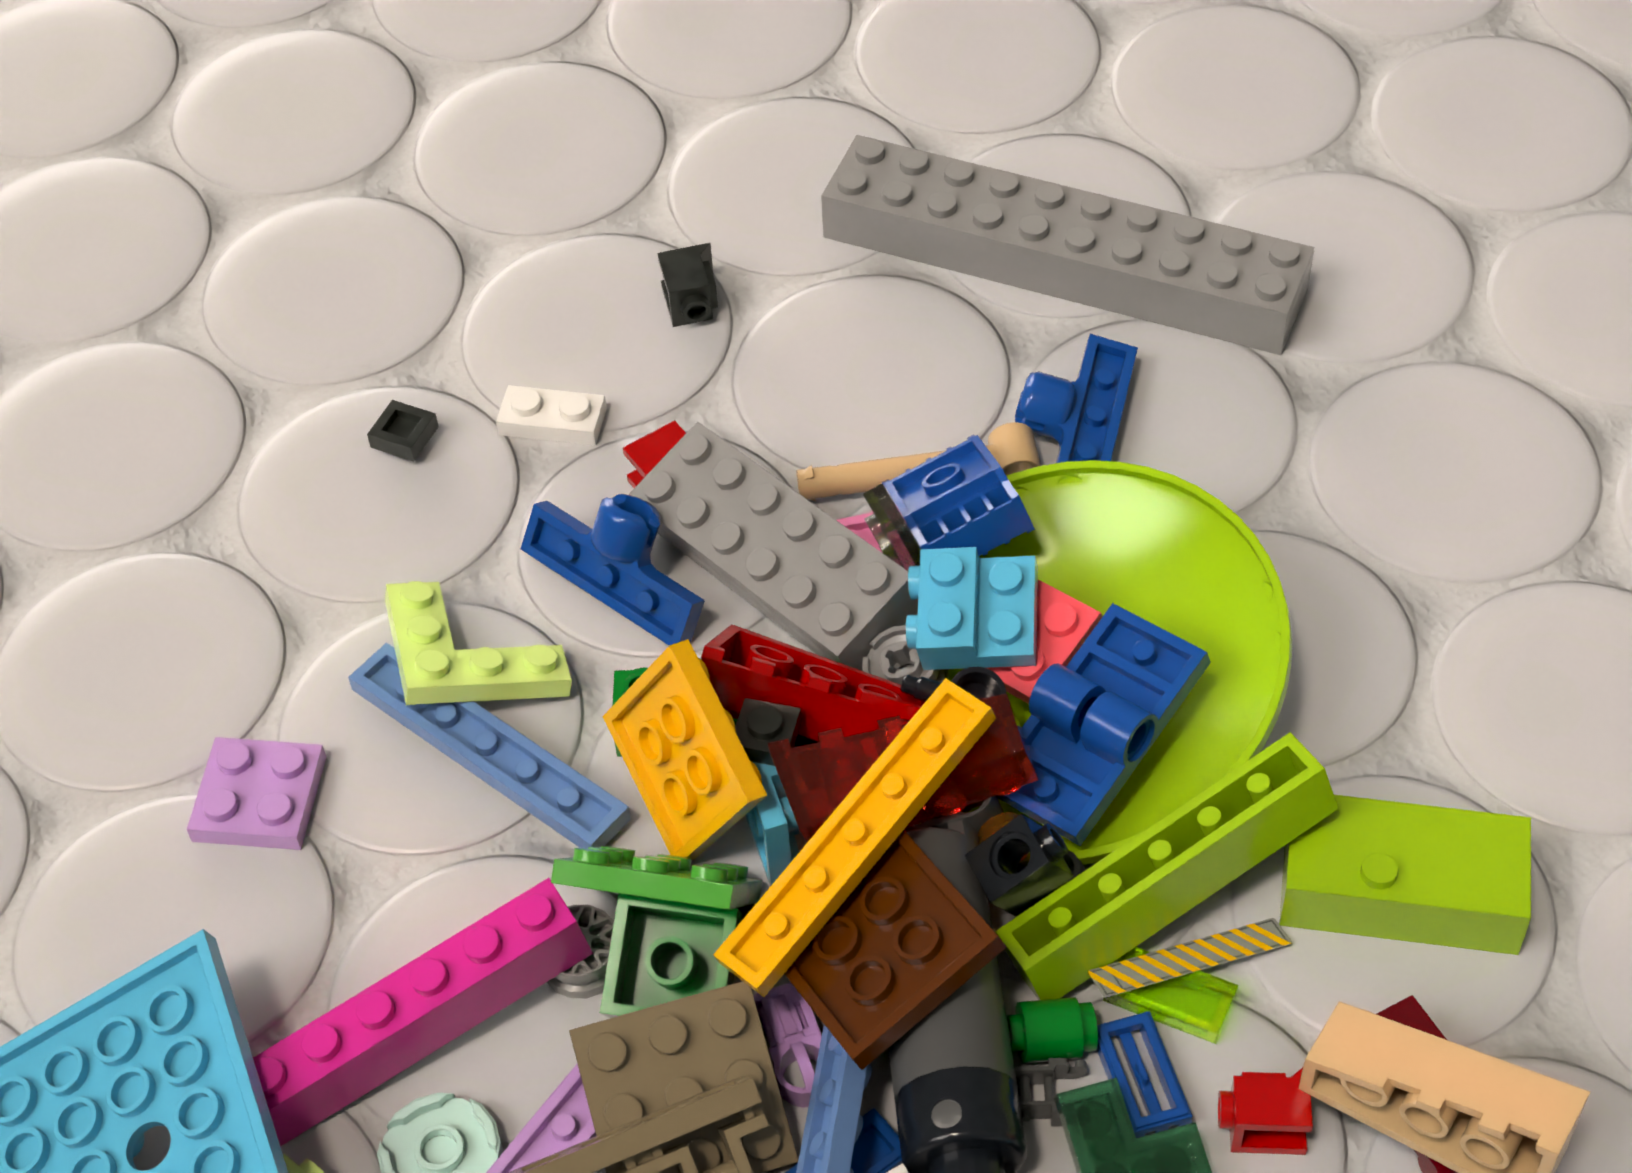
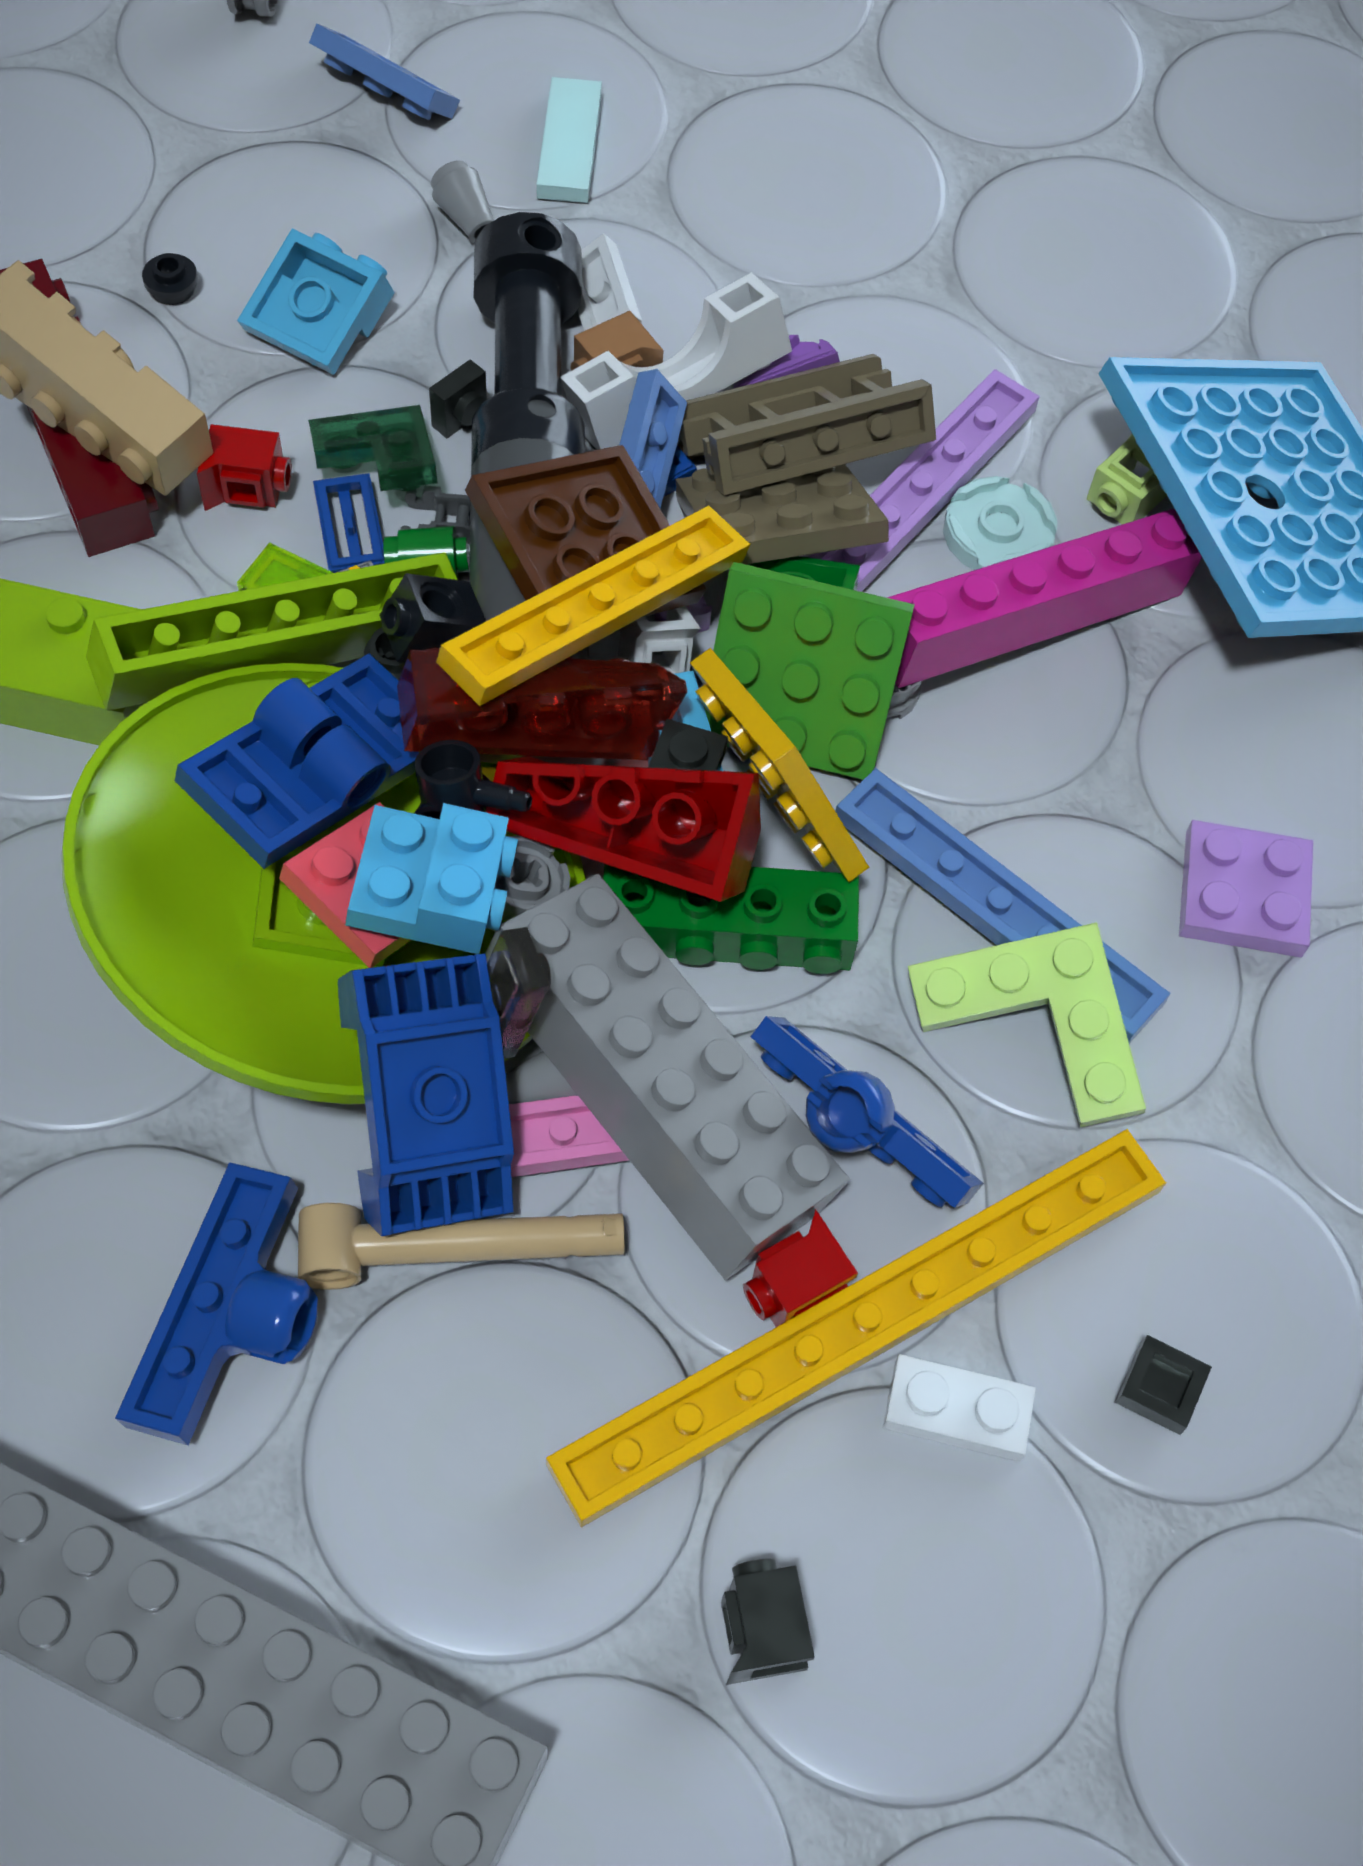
camera: 175 degrees right, 10 degrees up
(599, 457) = (850, 1328): none -> yellow plate

